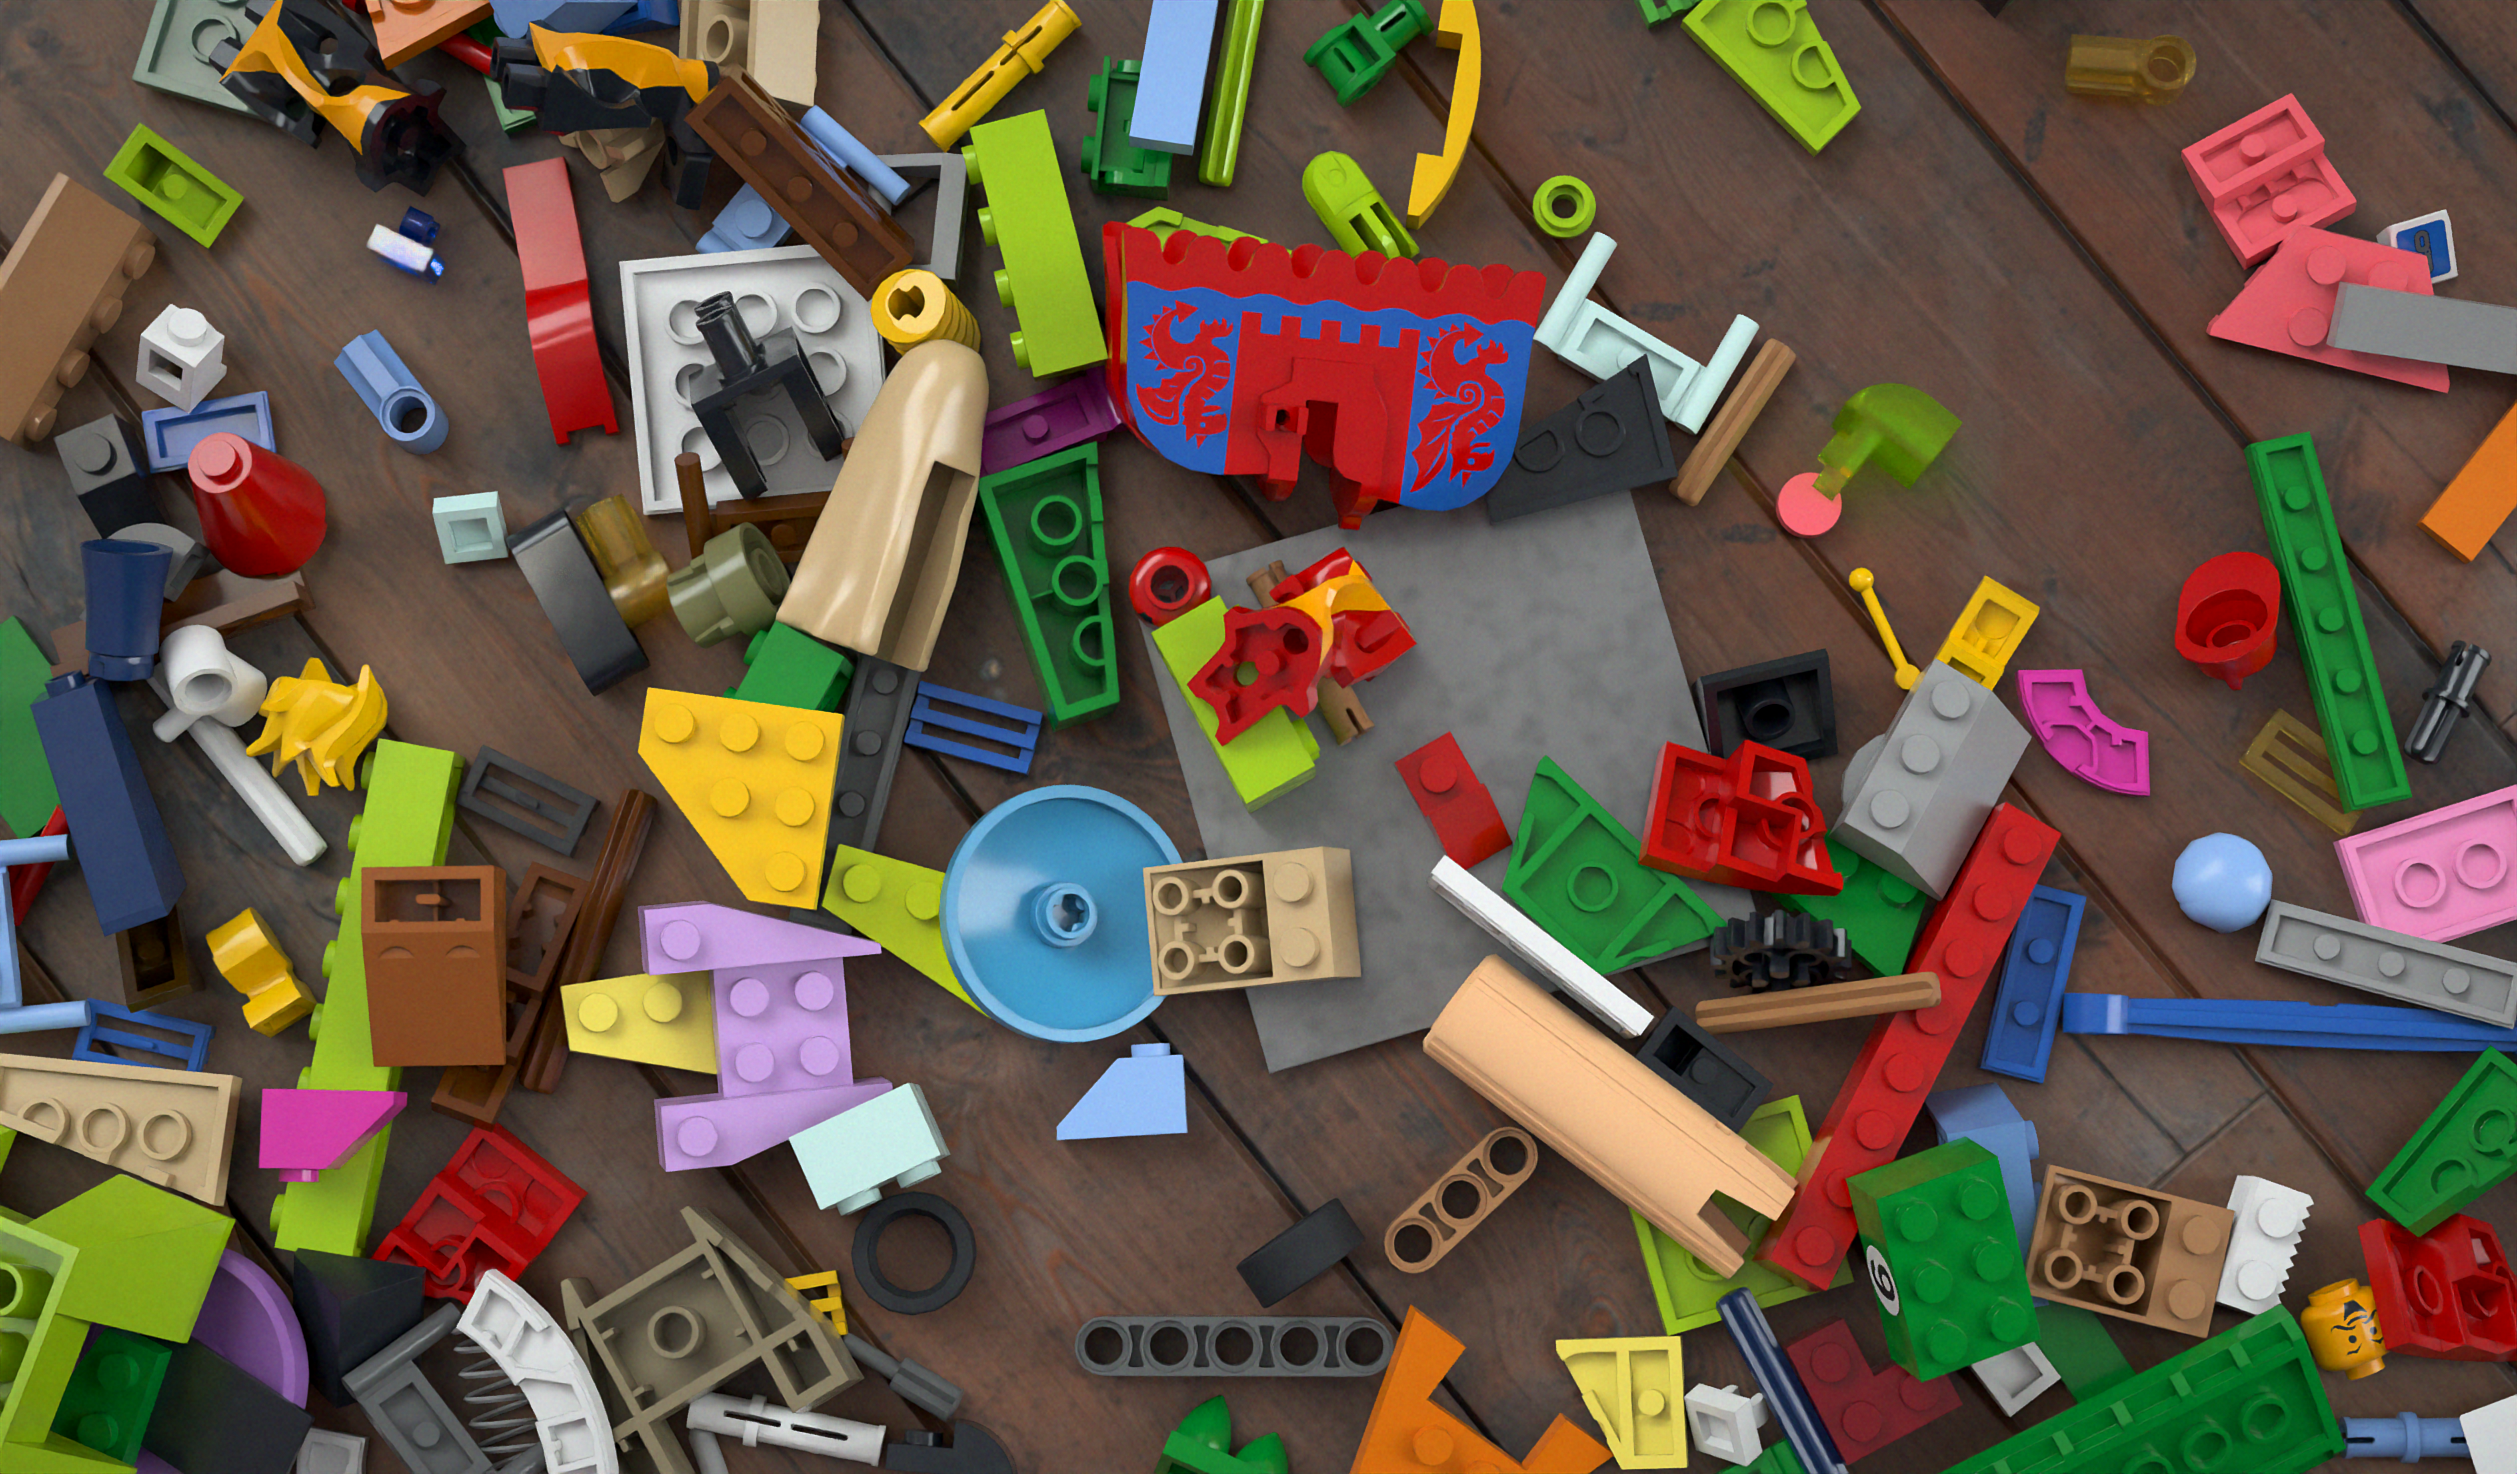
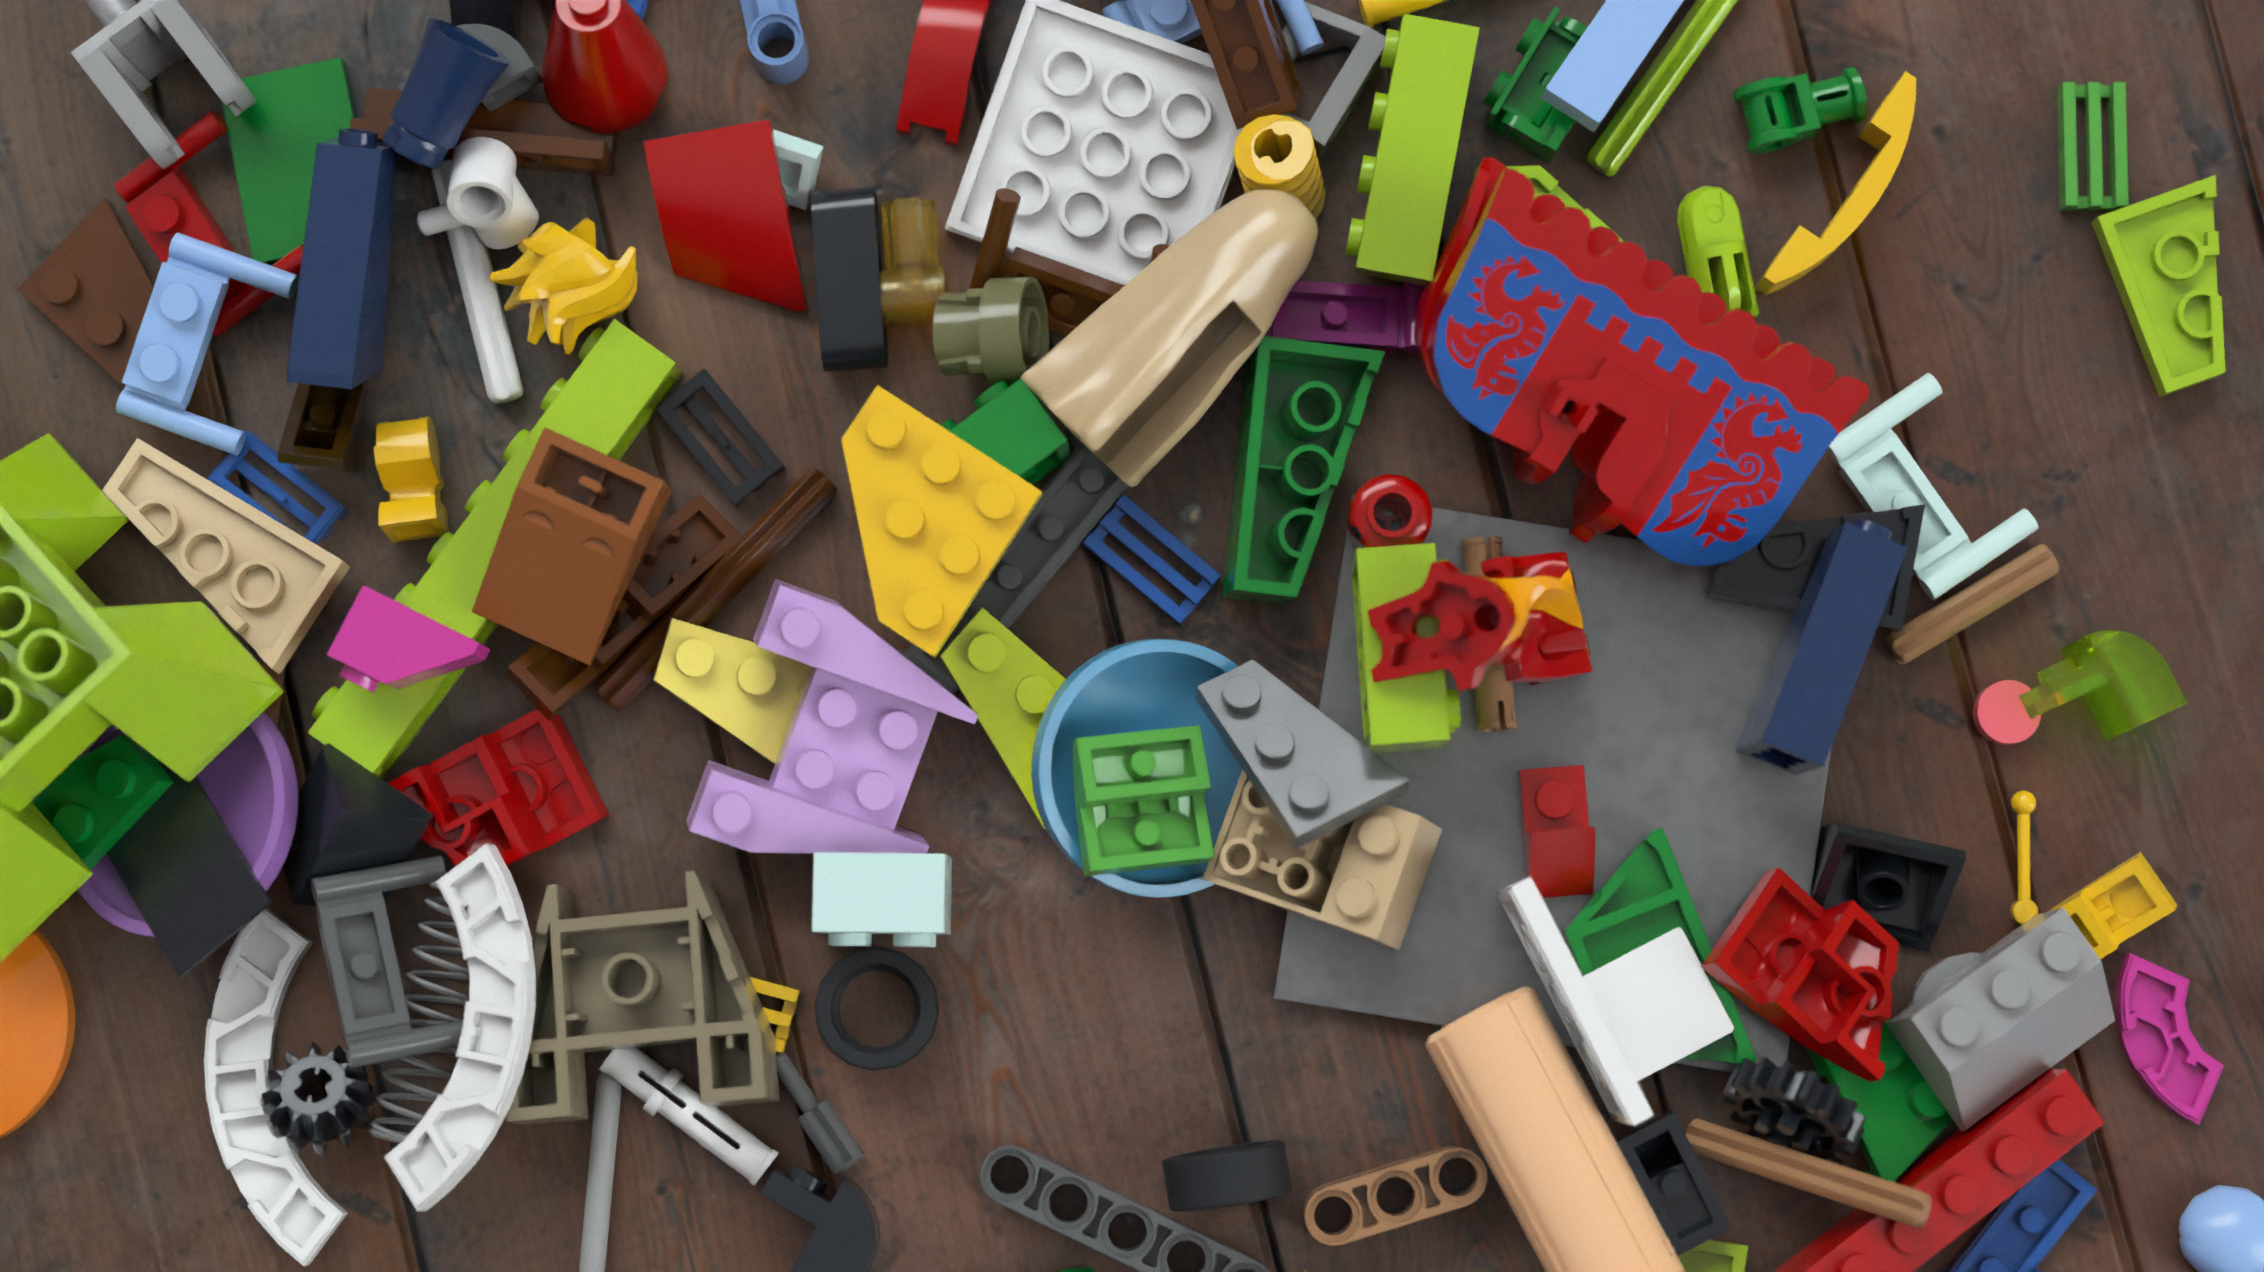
camera: 25 degrees right, 0 degrees up
(437, 592) = (727, 212): none -> red slope
(743, 366) = (1091, 136): black piece -> none
(1065, 950) = (1141, 800): none -> bright green slope
(1133, 1098) = (1140, 962): light blue slope -> none
(1184, 844) = (1295, 755): none -> wing
(1564, 188) = (1923, 325): lime plate -> none
(1614, 526) = (1823, 649): none -> dark blue slope
(1615, 915) = (1658, 1003): none -> white sticker

